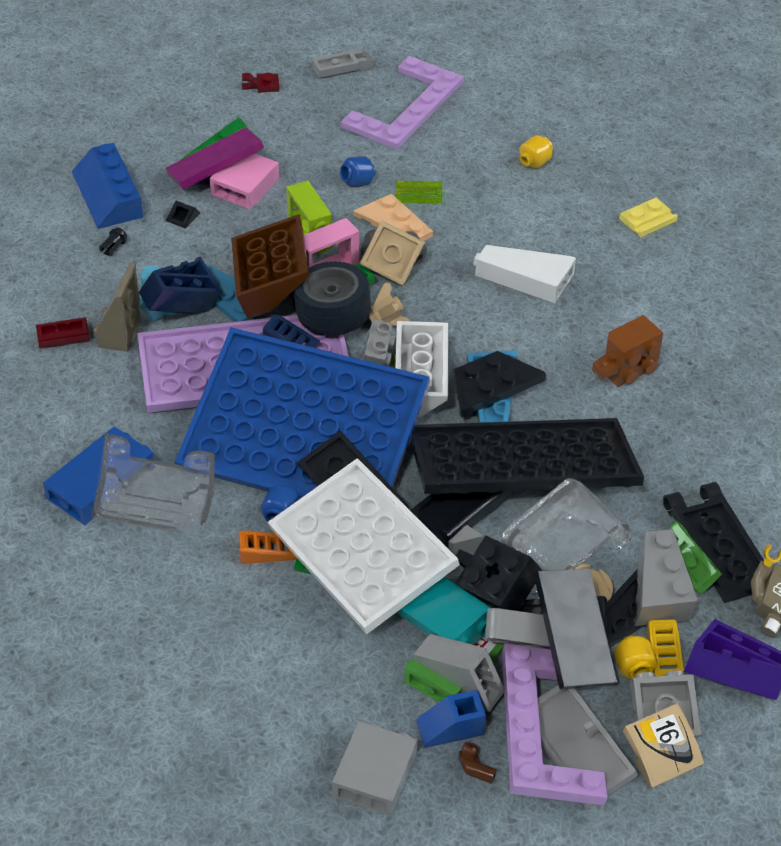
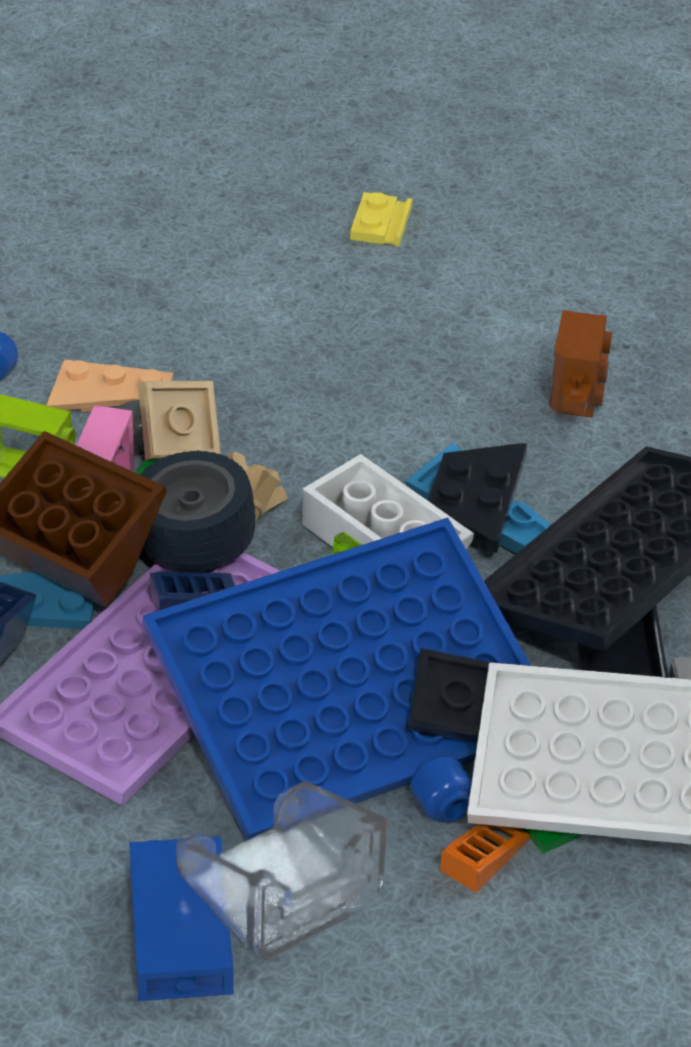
camera: 45 degrees left, 5 degrees down
(378, 342) = (317, 529): light grey plate -> none
(415, 190) = (99, 336): clear neon green tile -> none
(525, 270) = (341, 352): white slope -> none
(536, 151) = (172, 215): yellow head -> none

